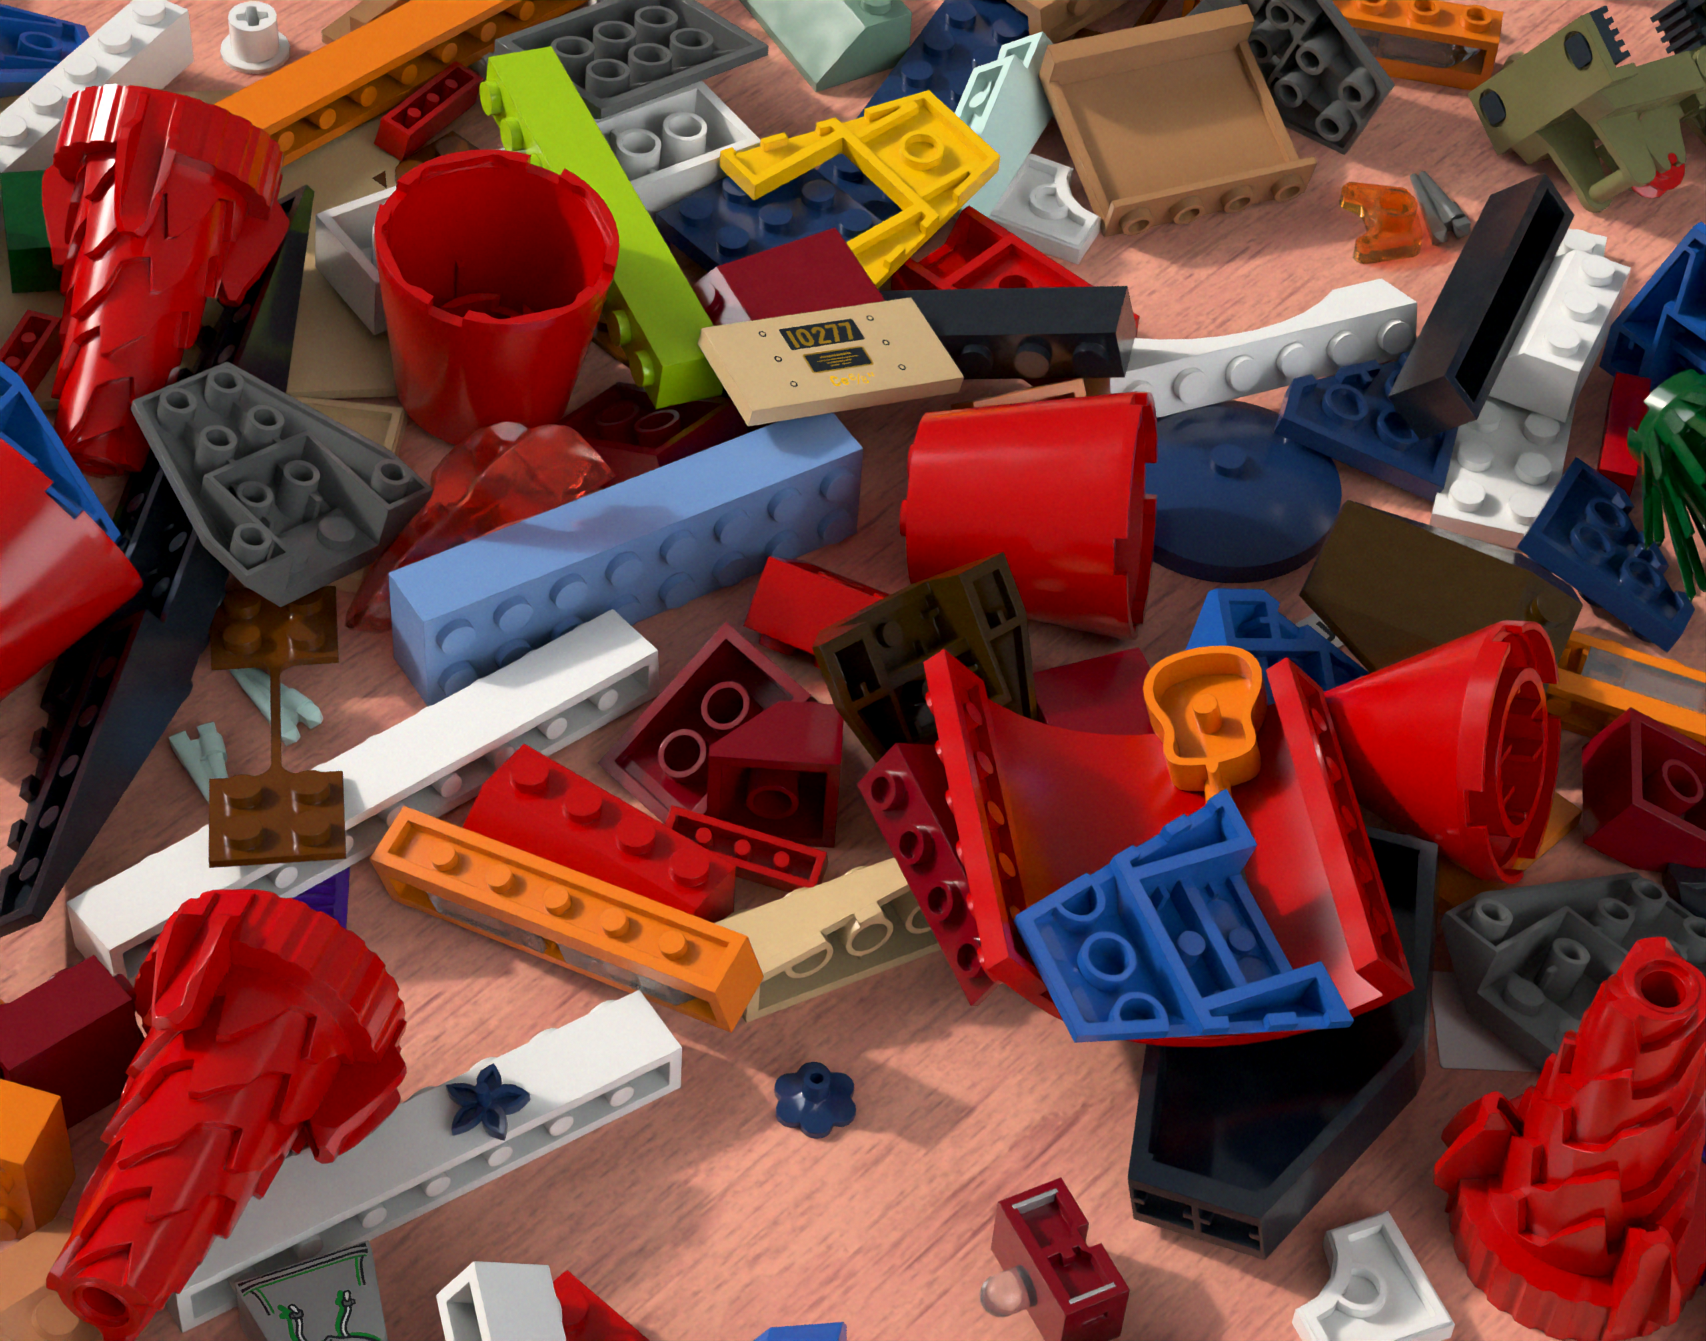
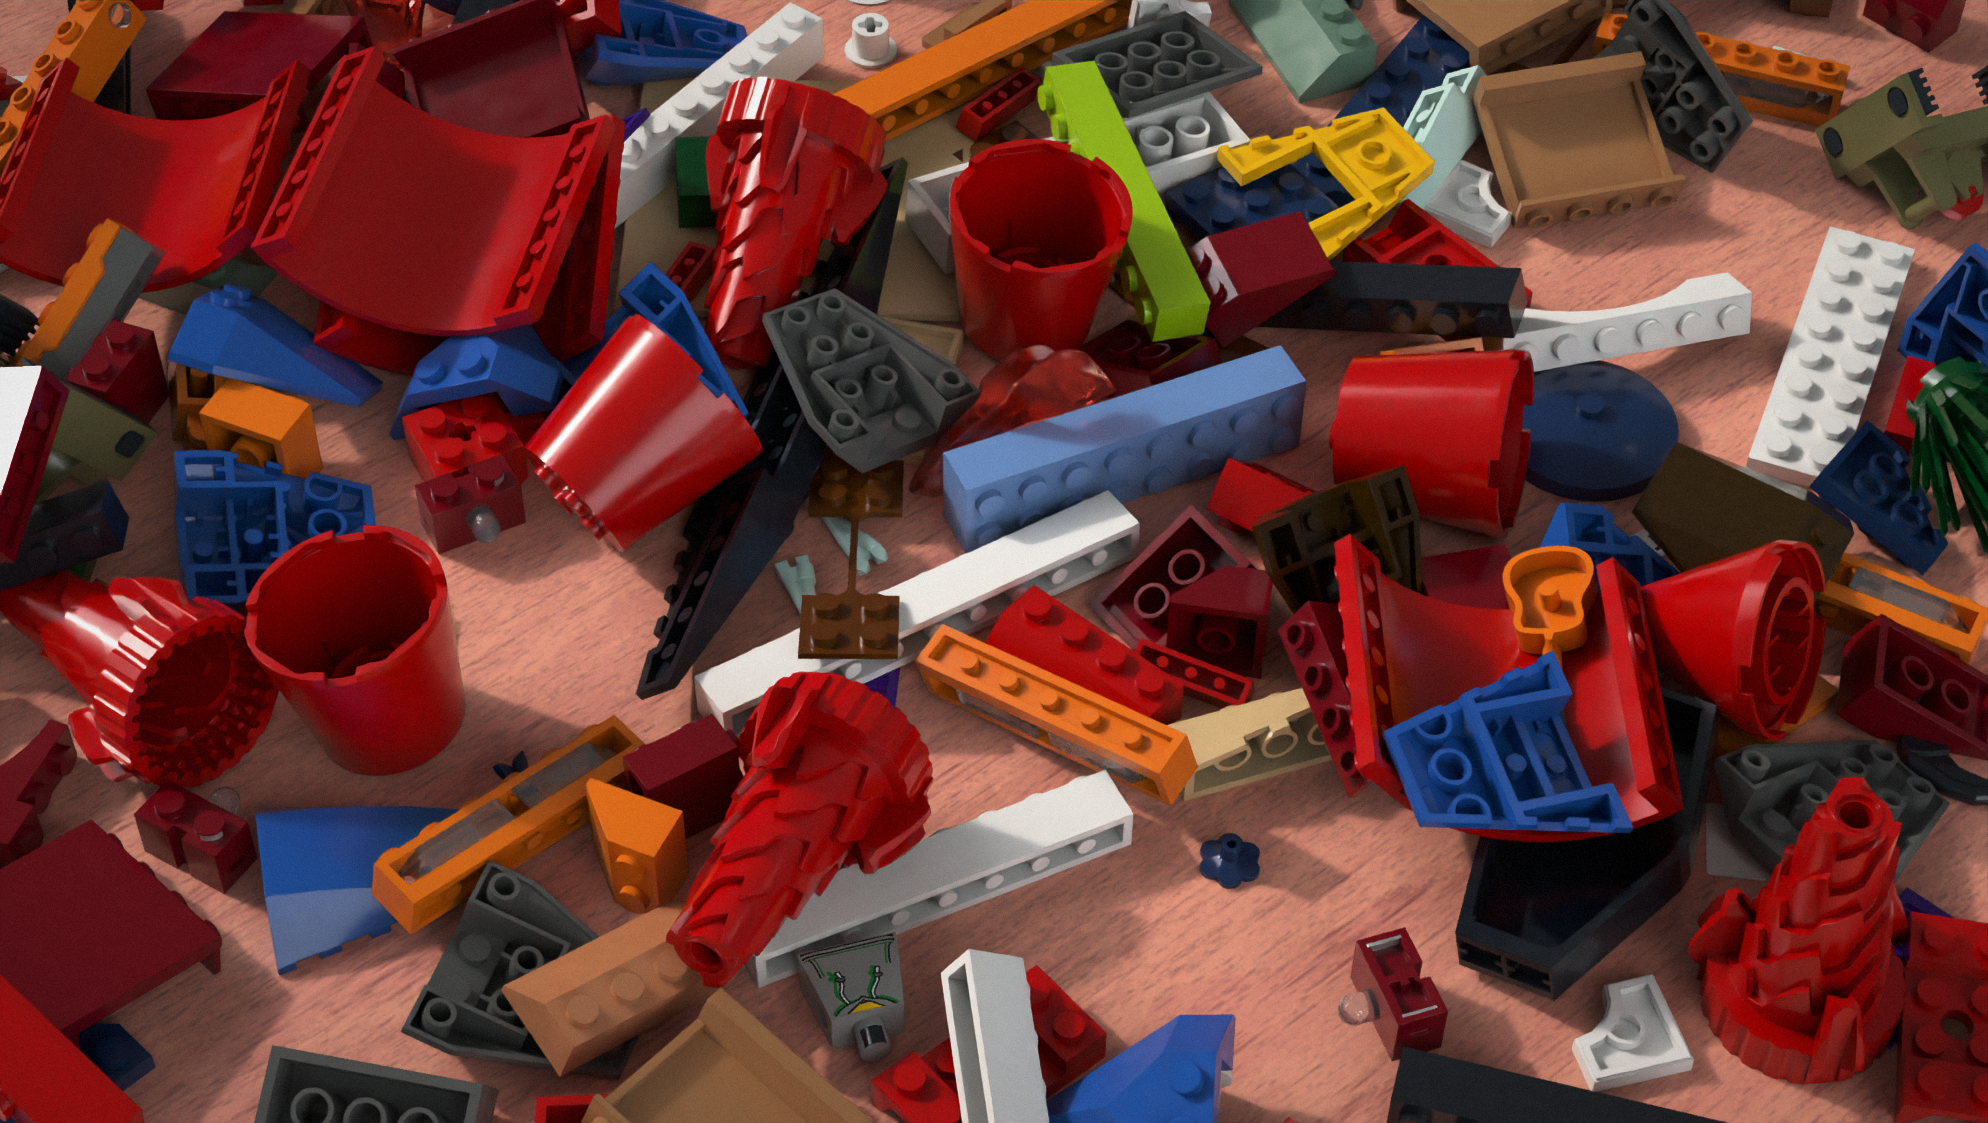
camera: 10 degrees right, 0 degrees up
(486, 1102) = (988, 841): dark blue plant -> none
(829, 361) = (1287, 313): tan tile -> none
(1358, 425) = (1716, 381): dark blue plate -> none
(1389, 221) = (1741, 227): clear orange piece -> none
(1438, 210) = (1782, 221): dark grey piece -> none
(1481, 307) = (1803, 299): black brick -> none
(1562, 334) = (1854, 322): white slope -> none

